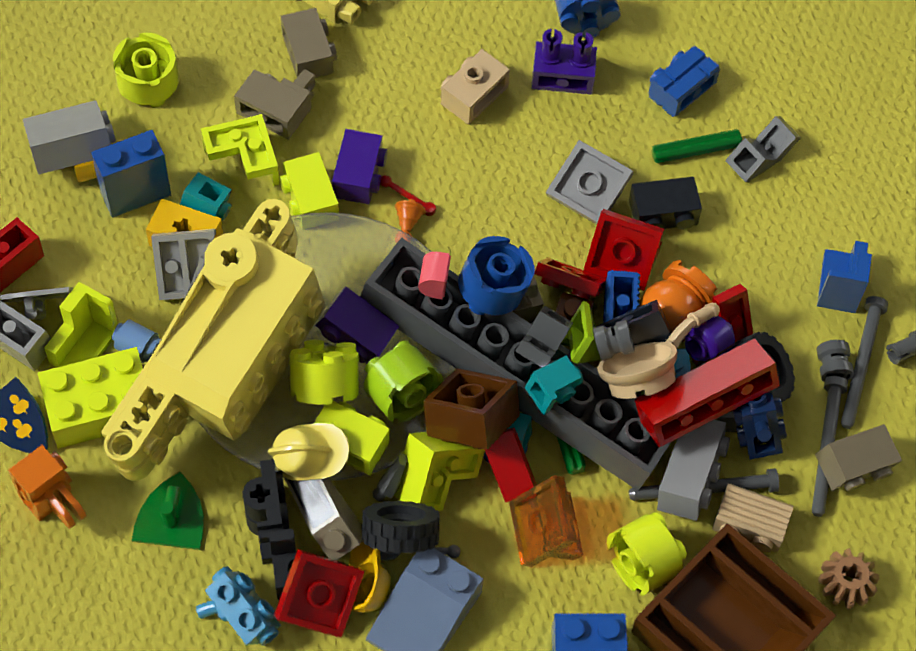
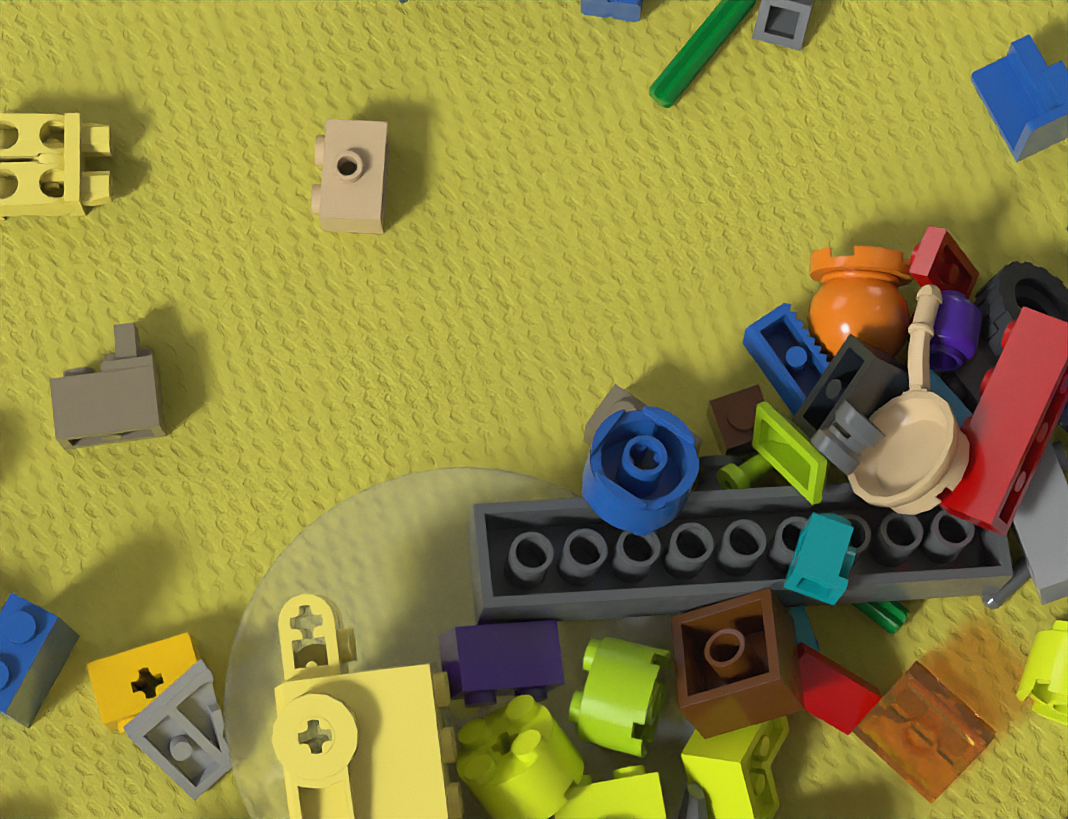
camera: 30 degrees left, 15 degrees up
(207, 196) = (139, 613): teal brick -> none
(243, 137) = (124, 489): neon yellow panel -> none
(307, 42) = (82, 279): dark tan brick -> none
(308, 186) = (262, 495): neon yellow brick -> none
(358, 166) = (297, 411): dark purple brick -> none
(386, 181) = (430, 398): red hinge -> none
(409, 213) = (418, 433): orange piece -> none
(434, 274) = (563, 527): coral brick -> none
(544, 337) = (755, 500): dark grey slope -> none
(558, 273) = (700, 368): red plate -> none
(564, 65) = (447, 58): dark purple brick -> none
(589, 182) = (614, 209): light grey hinge -> none
(623, 246) = (732, 275): red bracket -> none
(666, 203) = (732, 166): black brick -> none

